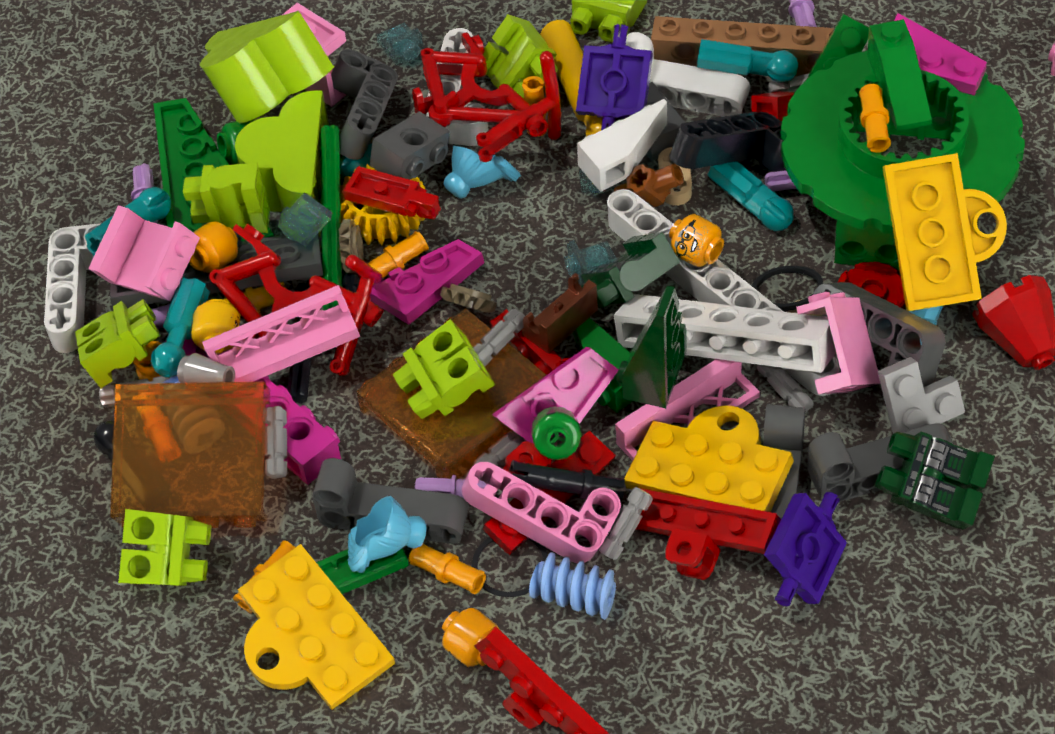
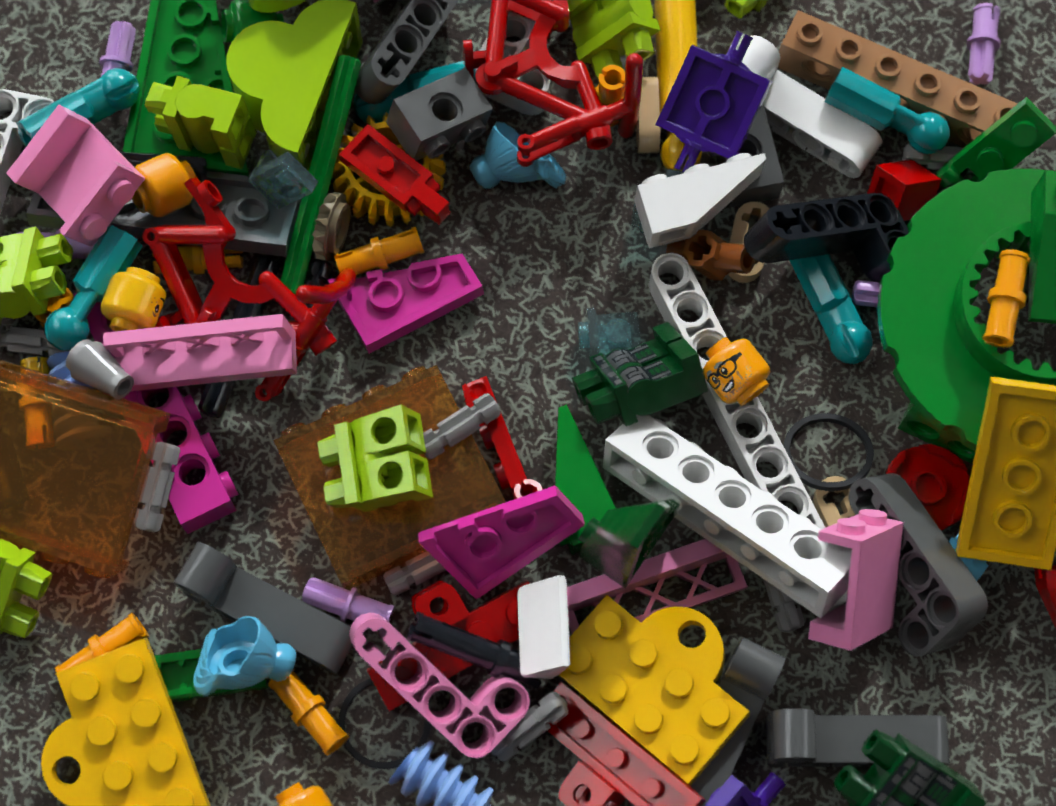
camera: 10 degrees right, 20 degrees up
(468, 298) = (447, 345): dark tan gear -> none
(553, 421) = (483, 587): green head -> none
(562, 315) = (542, 420): copper hinge -> none
(570, 121) = (646, 131): none -> tan beam
(613, 449) = (543, 628): none -> white slope
(917, 406) = (920, 678): light grey plate -> none

